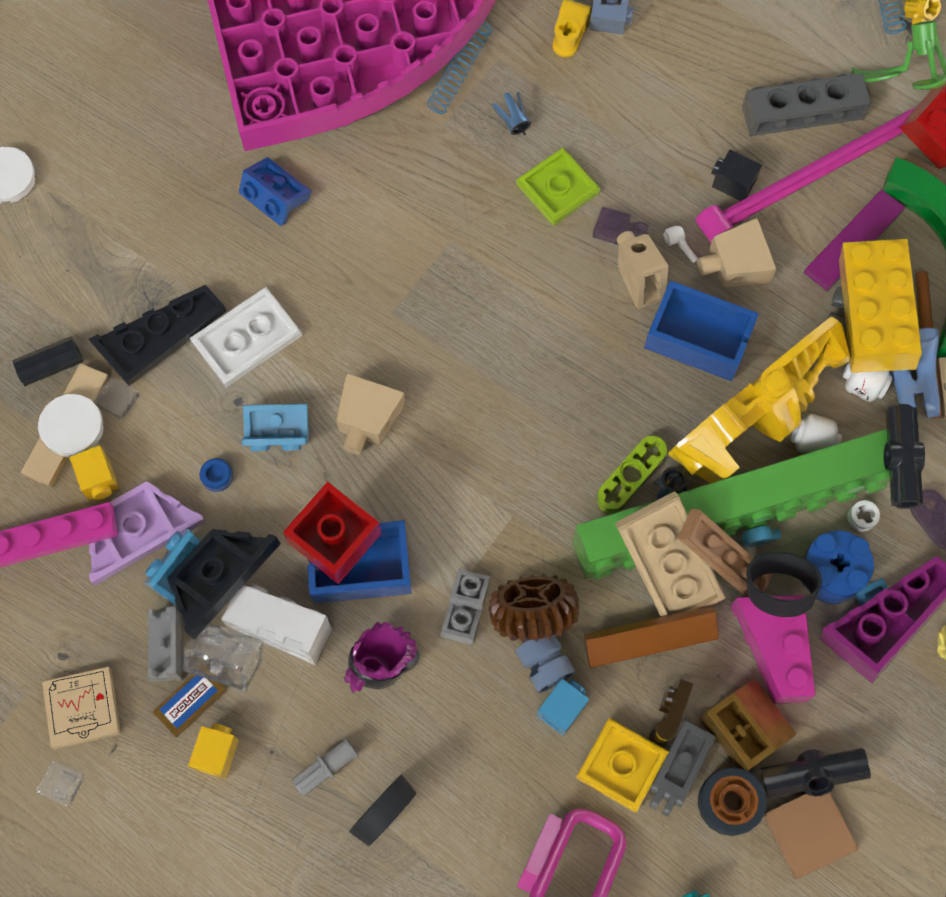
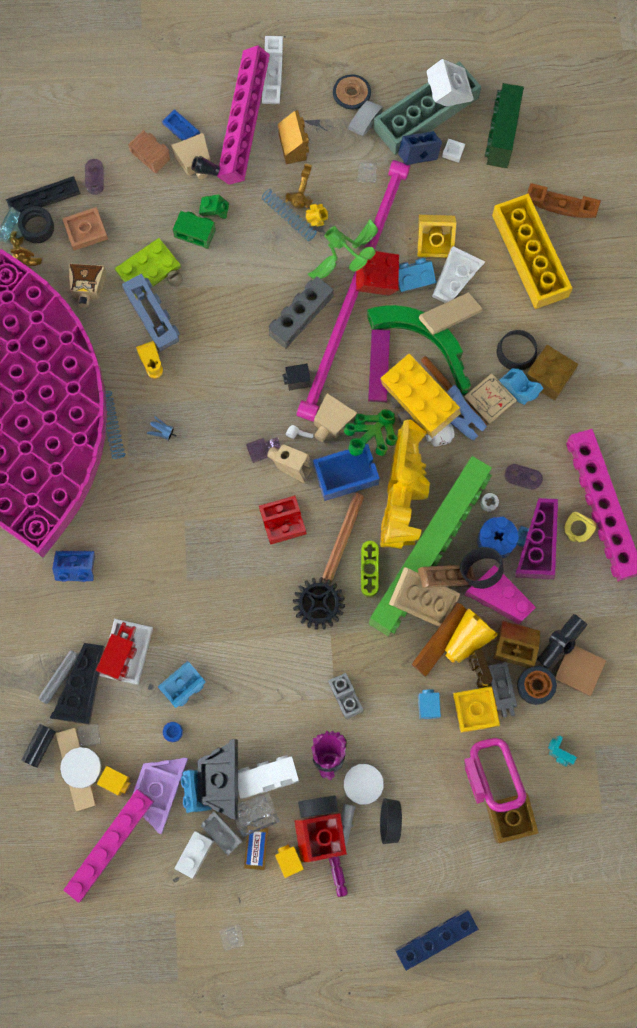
camera: 40 degrees left, 5 degrees up
(81, 708) = (207, 895): tan tile -> none
(107, 642) = (194, 854): none -> white piece
(140, 303) = (58, 677): none -> light grey axle
(232, 326) = (118, 654): none -> red brick
(259, 825) = (338, 876): none -> magenta axle
(278, 755) = (320, 837): none -> red slope
(308, 712) = (318, 806): none -> black tyre
(332, 532) = (262, 715): red brick -> none
(367, 412) = (220, 641): tan torso -> none
(378, 573) = (280, 717): blue piece -> none
(392, 736) = (363, 784): none -> white tile
(534, 608) = (380, 671): reddish brown gear -> none
(542, 461) = (325, 609): none -> black gear
(545, 663) = (404, 691): sand blue wheel -> none
(558, 186) = (214, 450): lime tile -> none
(571, 330) = (282, 520): none -> red slope
(629, 410) = (343, 537): none -> nougat axle
(672, 480) = (393, 558): black piece -> none
(694, 658) = (469, 636): none -> yellow cone
(760, 536) = (452, 550): dark azure piece -> none
(808, 307) = (385, 419): none -> green plant
(815, 434) = (440, 481): white head -> none
(904, 456) = (490, 464): black piece -> none

